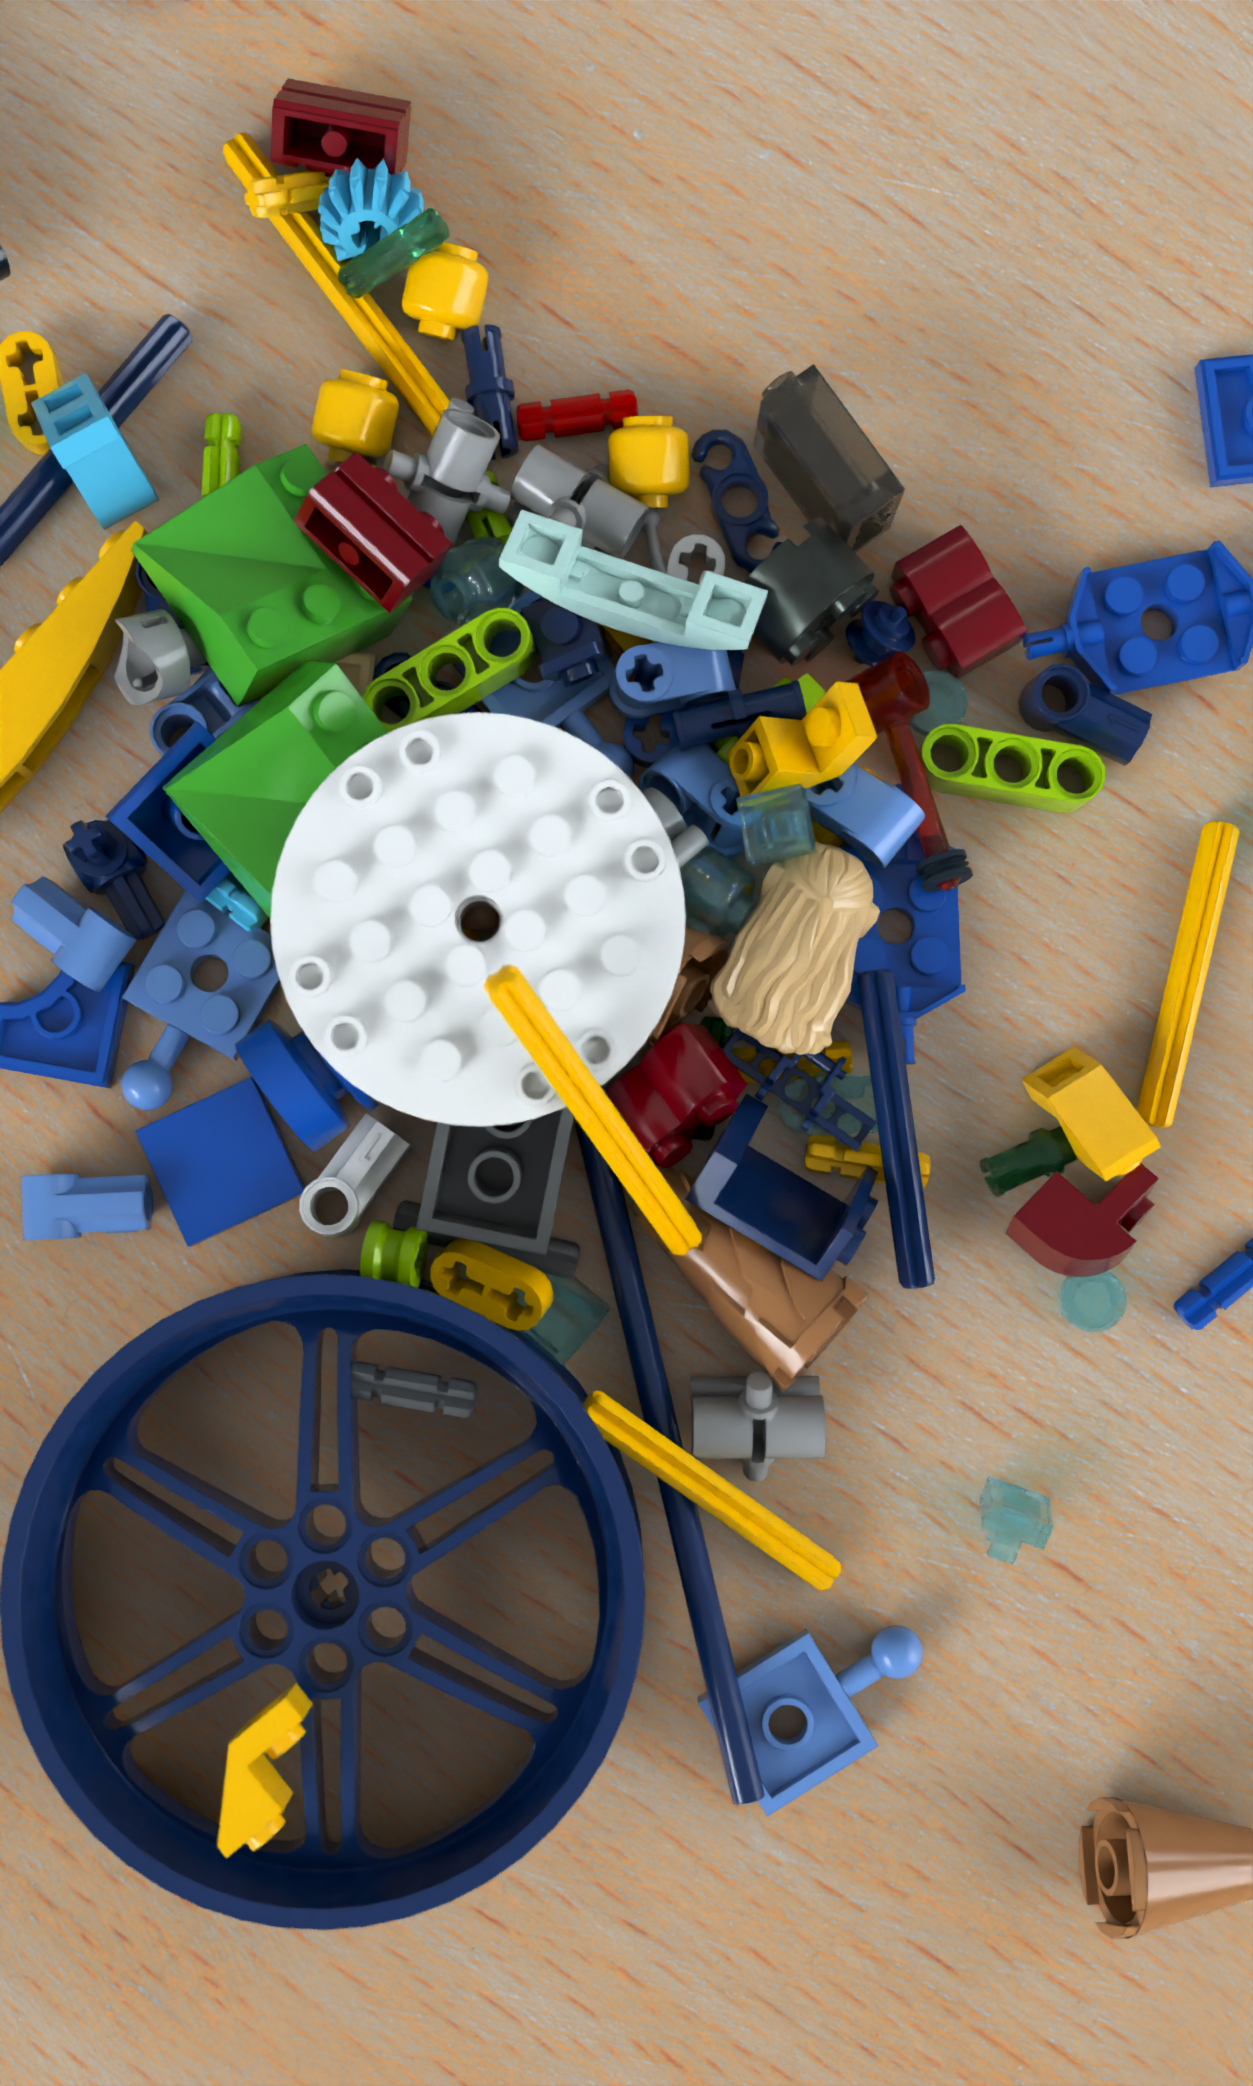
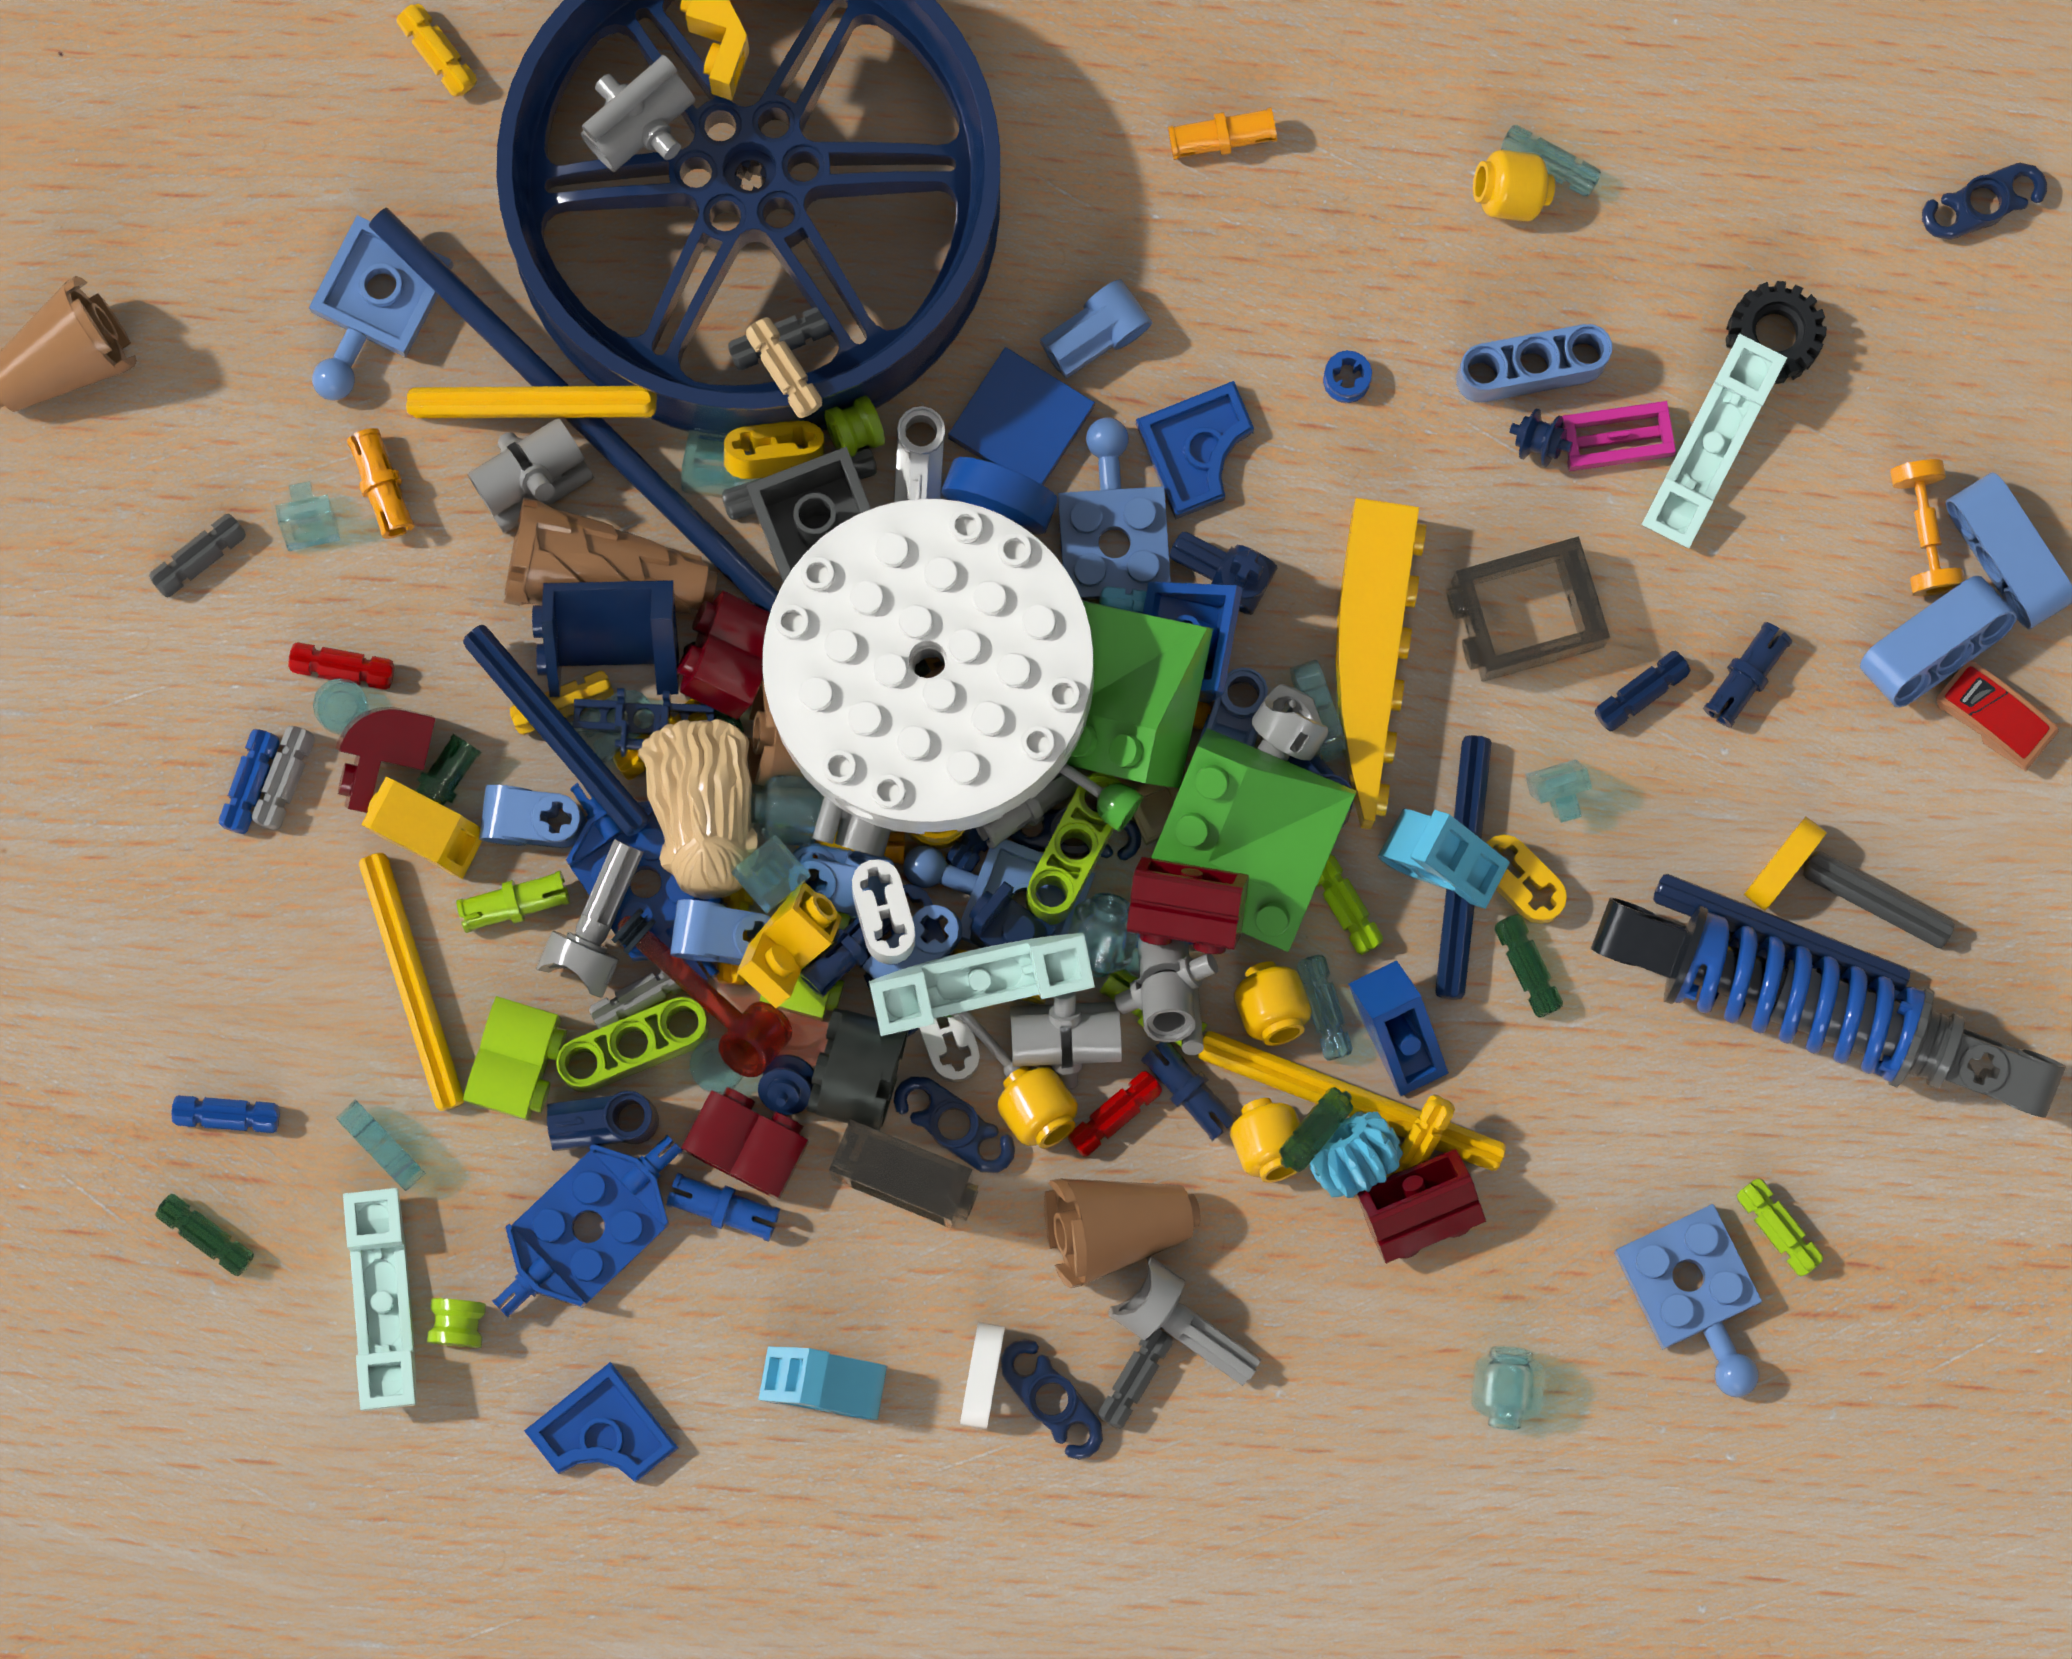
camera: 145 degrees right, 5 degrees down
(81, 938) = (1211, 506): medium blue piece -> none
(84, 306) = (1528, 965): none -> clear green axle
(106, 706) = (1311, 681): none -> clear light blue beam
(247, 322) = (1399, 1027): none -> blue slope
(320, 352) = (1325, 1007): none -> clear light blue axle
(380, 677) = (1114, 803): none -> bright green hinge
(407, 1728) = (637, 115): none -> light grey pin
(428, 1341) = (784, 367): none -> tan axle
(572, 1948) = (436, 50): none -> yellow axle
(591, 1107) = (765, 579): yellow axle -> none
(650, 296) = (1114, 1224): none -> medium nougat cone
(658, 198) = (1159, 1306): none -> light grey piece
(669, 713) = (895, 909): none -> white beam
(718, 157) = (1135, 1378): none -> dark grey axle
(799, 161) = (1076, 1410): none -> dark blue piece
(865, 243) = (982, 1375): none -> white beam
(914, 1508) = (380, 483): none -> light orange pin
(980, 1069) = (521, 817): none -> medium blue piece
(984, 818) = (633, 999): none -> light grey axle
(1003, 888) = (583, 950): none -> light grey piece
(1014, 560) = (723, 1207): none -> blue pin
(1028, 326) = (822, 1382): none -> medium azure tile
(1039, 988) = (513, 901): none -> lime pin
(1067, 1341) = (341, 664): none -> red axle
(1135, 829) = (514, 1059): none -> lime brick
(1146, 1551) = (197, 555): none -> dark grey axle
(1194, 1262) = (283, 777): none -> light grey axle

